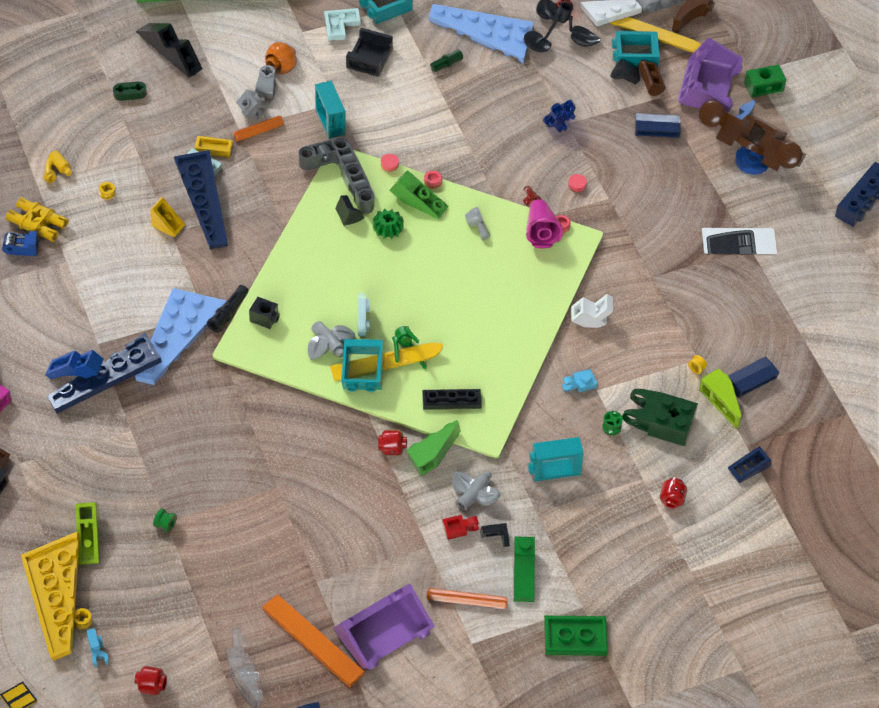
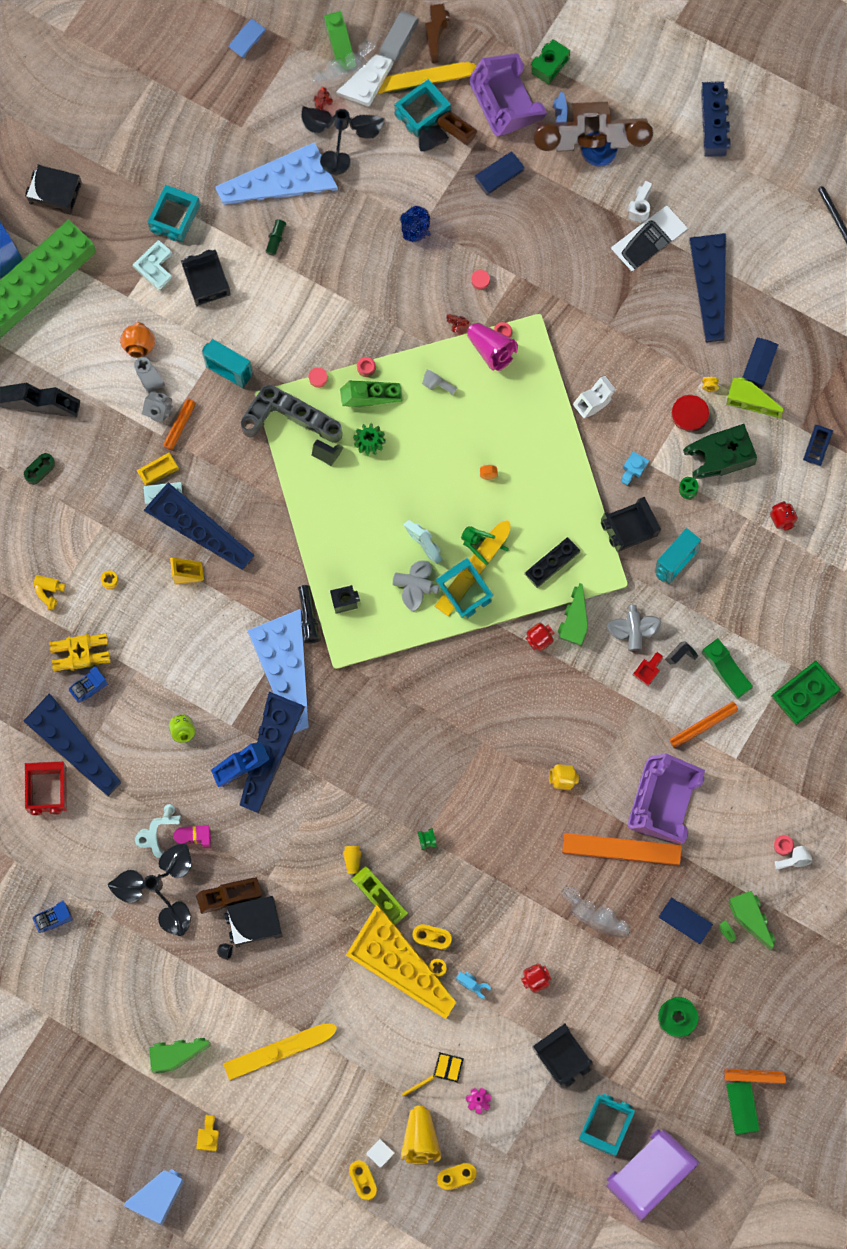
camera: 30 degrees left, 20 degrees up
(57, 315) = (181, 728): none -> lime head
(95, 491) = (352, 858): none -> yellow cone
(101, 593) = (432, 937): none -> yellow plate
(315, 552) = (563, 777): none -> yellow head
(459, 304) = (488, 472): none -> orange tile
(538, 416) = (630, 525): none -> black panel
(662, 374) = (690, 413): none -> red tile
(747, 213) = (640, 203): none -> white plate
(767, 291) = (709, 270): none -> dark blue wing

